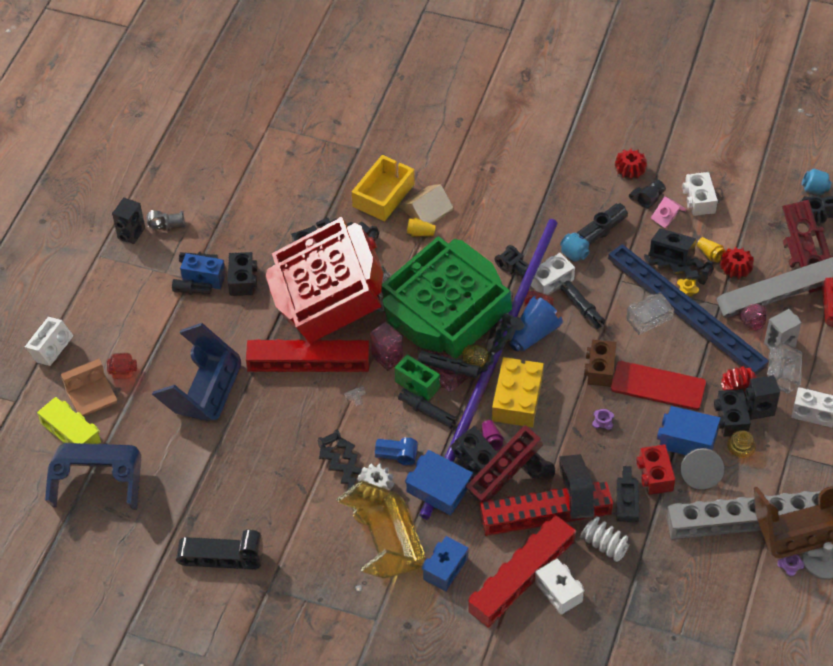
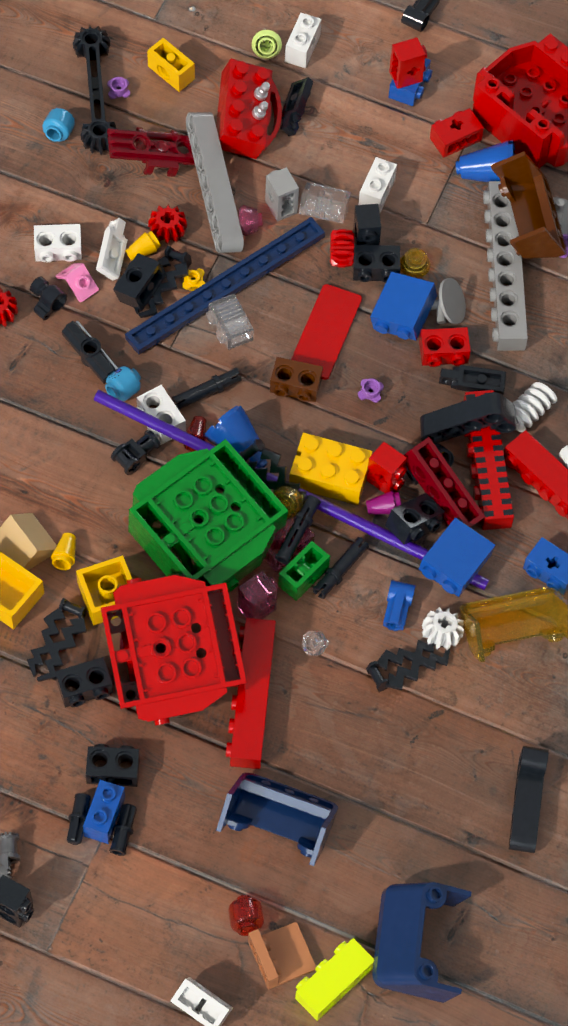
camera: 90 degrees left, 10 degrees up
(391, 249) = (99, 583): none -> yellow brick
(516, 419) = (386, 468): none -> red brick
(703, 228) = (112, 250): none -> white hinge

